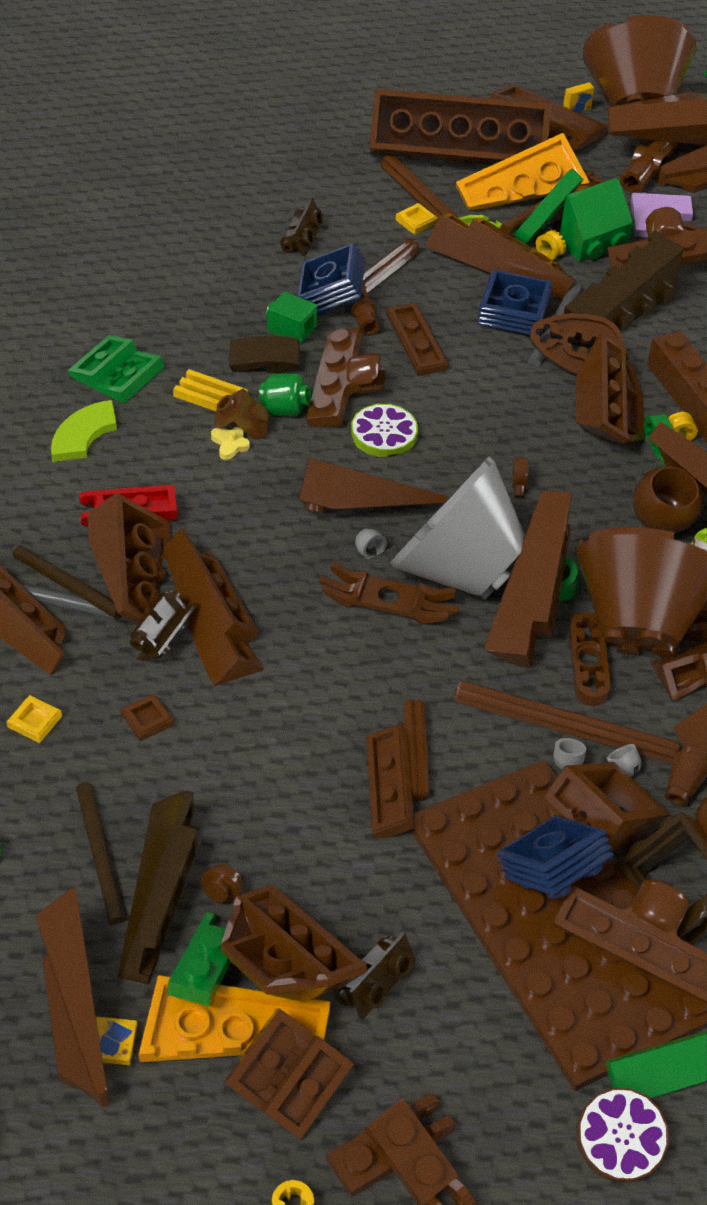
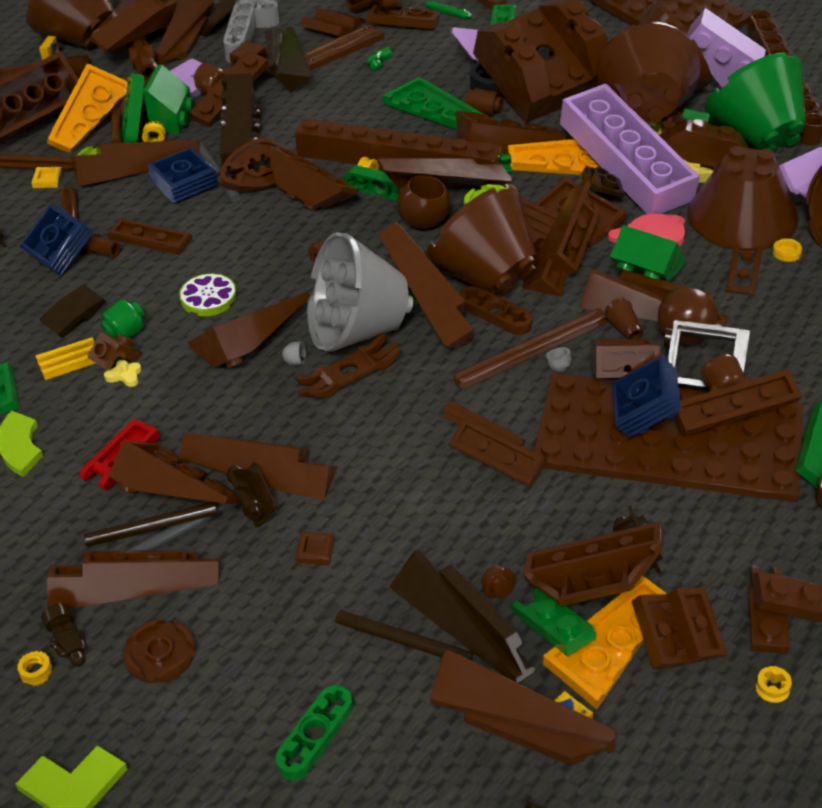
camera: 45 degrees left, 5 degrees down
(34, 719) = (250, 612): yellow tile -> none
(291, 317) = (57, 278): green brick -> none
(341, 375) = (141, 285): reddish brown plate -> none
(627, 759) = (584, 335): light grey hinge -> none

